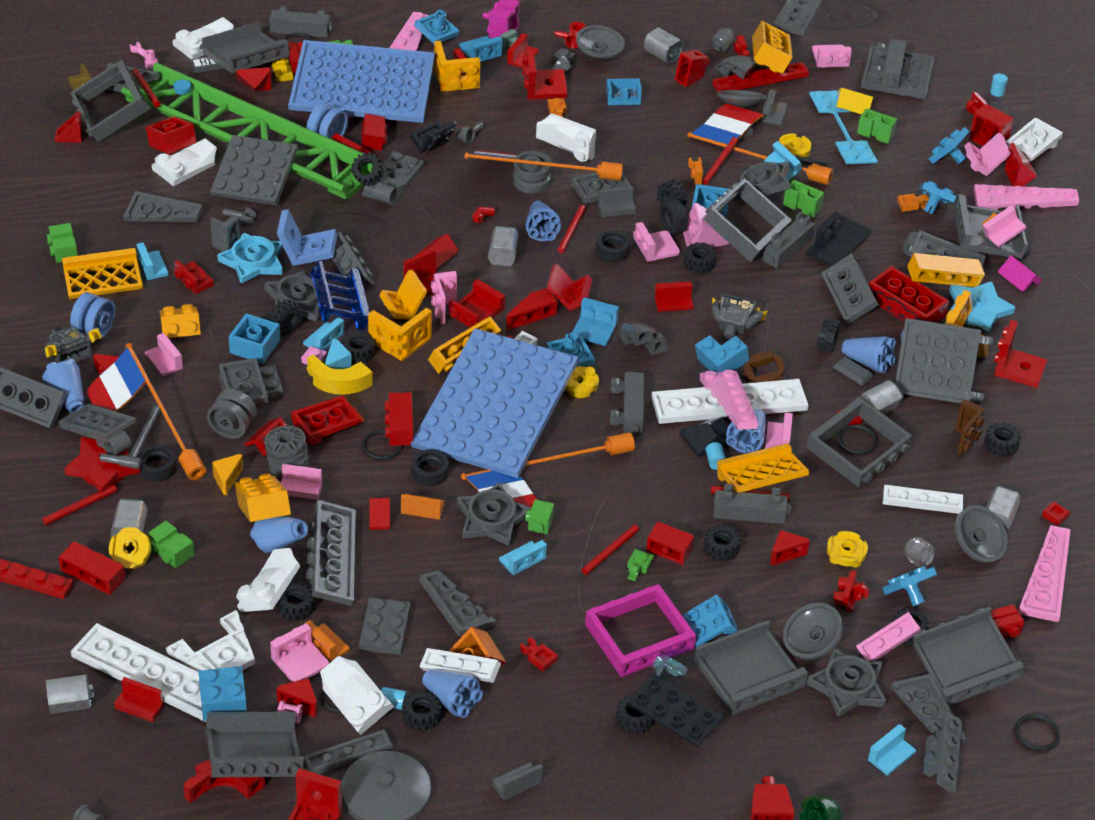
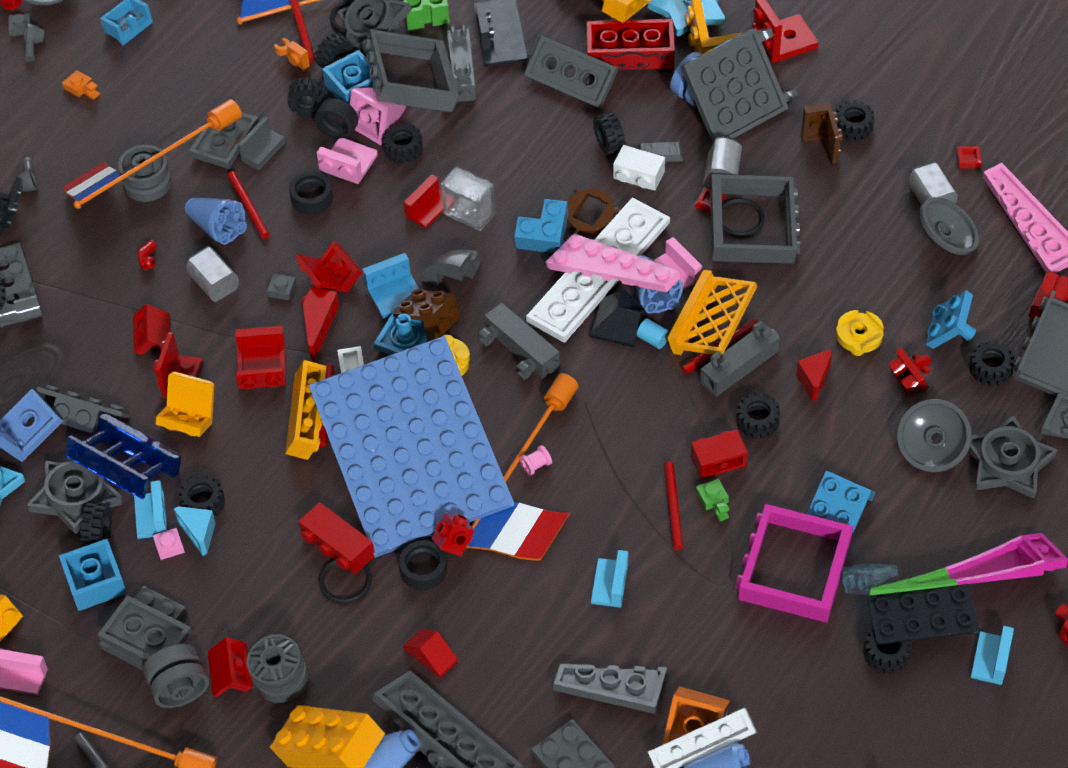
camera: 40 degrees left, 10 degrees up
(227, 471) = (238, 743): light orange slope -> none
(302, 481) = (324, 687): bright pink panel -> none
(325, 418) = (267, 600): red slope -> none
(339, 380) = (226, 550): yellow arch -> none
(400, 340) = (228, 459): light orange bracket -> none
(421, 506) = (462, 610): orange panel -> none
(443, 289) = (219, 372): bright pink bracket -> none
(462, 462) = (453, 533): none -> red brick
(491, 514) = (536, 564): dark grey plate -> none
(535, 281) = (281, 287): none -> dark grey plate
(536, 80) = (26, 64): red bracket -> none
(539, 656) = (746, 666): red plate -> none
(540, 516) = (584, 527): bright green brick -> none
(560, 466) = (535, 460): none -> bright pink bush
(568, 136) = (138, 107): white slope -> none
(597, 349) = (435, 309): none -> reddish brown bracket
(695, 308) = (468, 198): none -> clear brick
(695, 771) = (992, 656): none -> medium azure panel
(718, 176) = (332, 49): none -> black tyre
(736, 314) = (509, 175): dark grey torso -> none
(748, 668) = (919, 518): dark grey panel -> none
(772, 731) = (1017, 558): none -> dark pink plate
(825, 367) = (639, 167): none -> white brick
(871, 352) = (660, 121): medium blue cone -> none
(888, 638) = (995, 389): bright pink plate -> none
(919, 552) = (919, 284): clear head -> none
(922, 499) = (860, 231): white plate -> none

